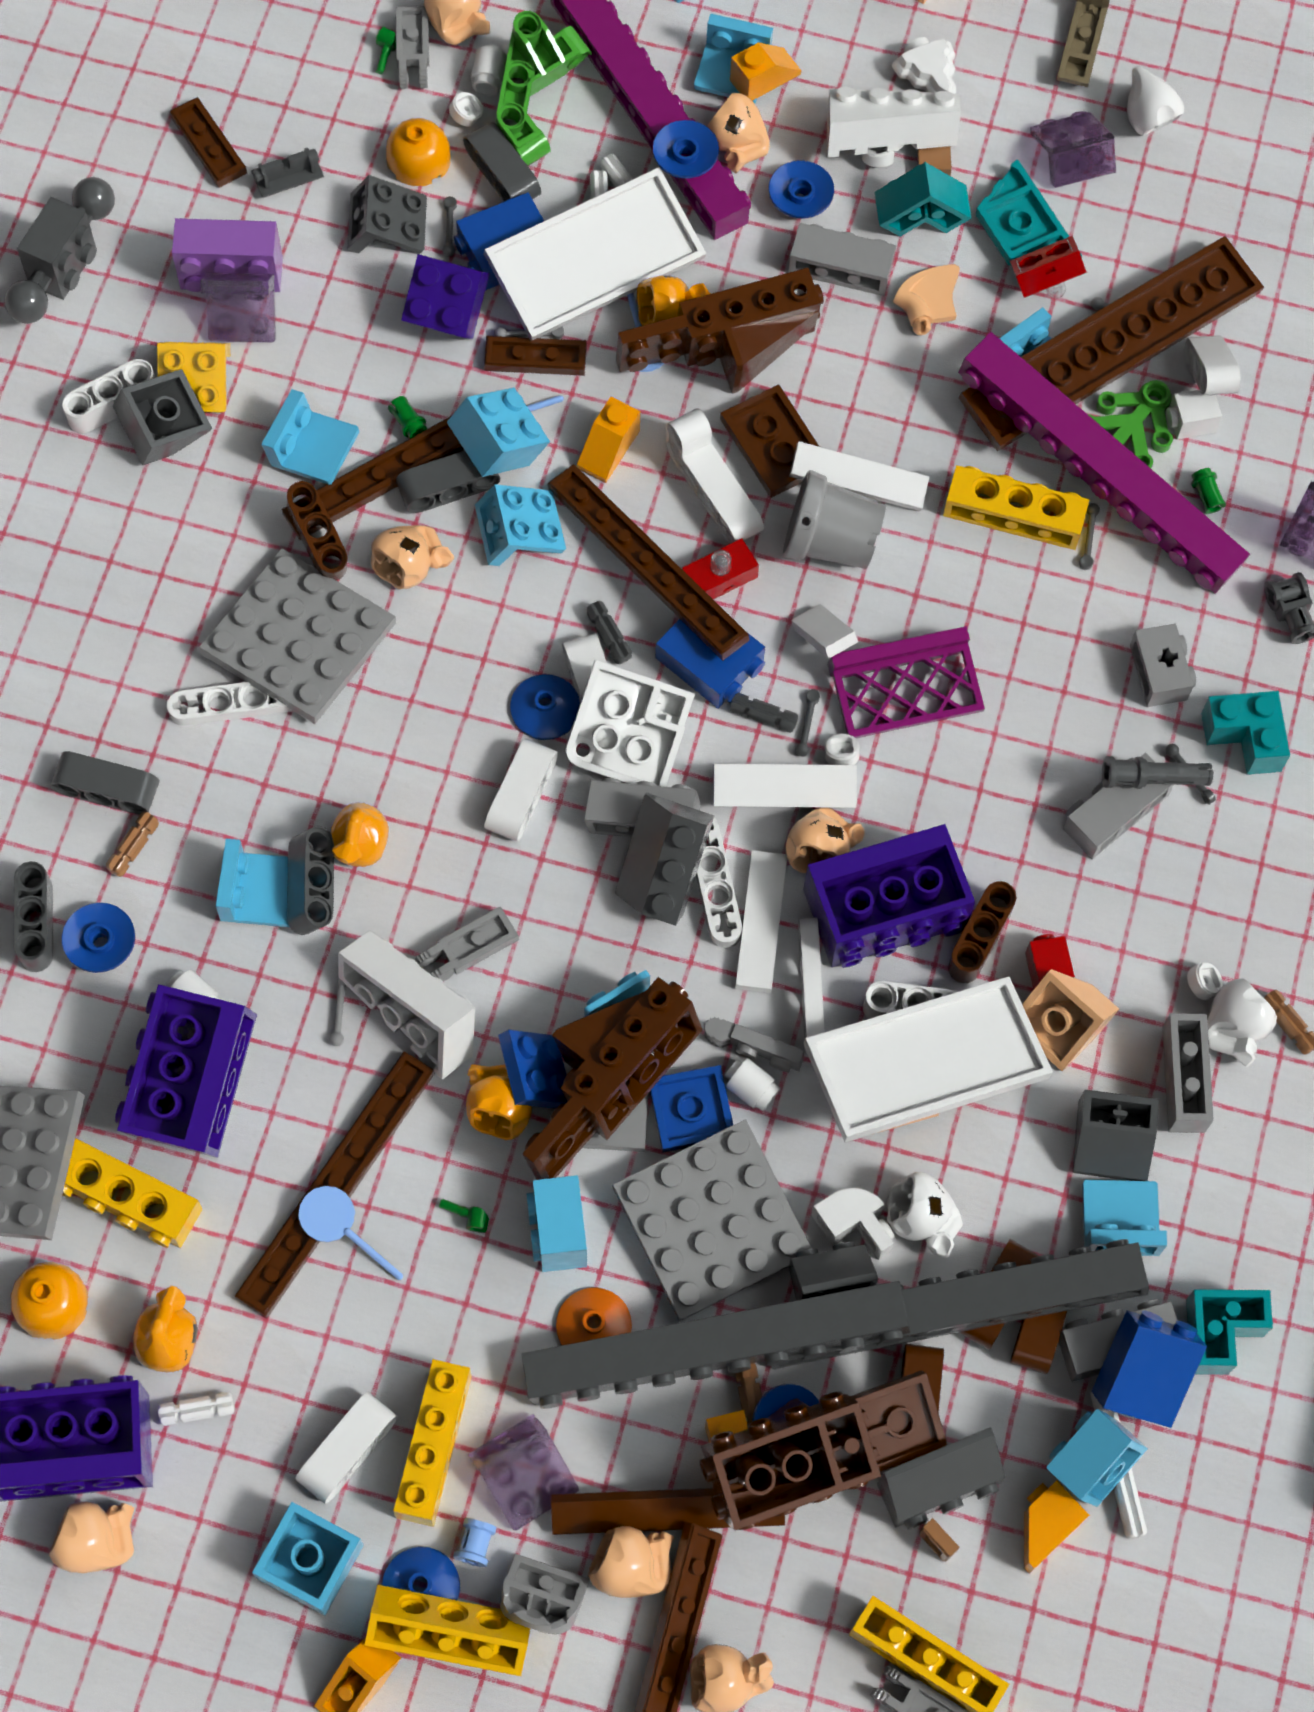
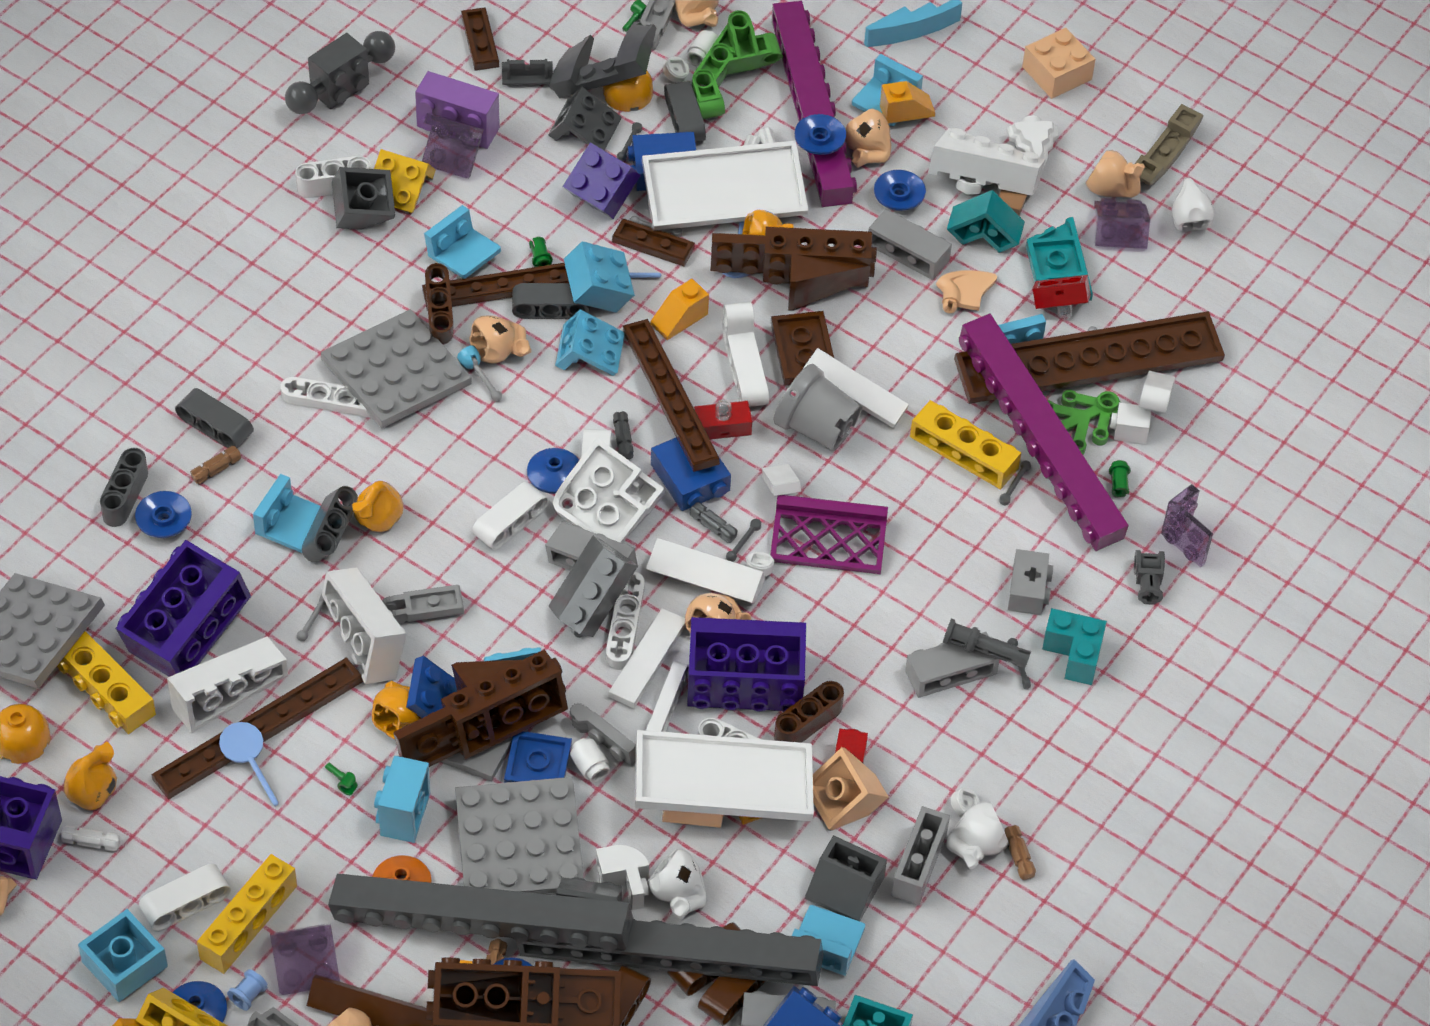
camera: 20 degrees right, 15 degrees down
(275, 1140) = (225, 682): none -> white wedge
(384, 592) = (470, 358): none -> hinge
(421, 124) = (631, 61): none -> dark grey wedge
(1045, 89) = (1115, 176): none -> light nougat piece

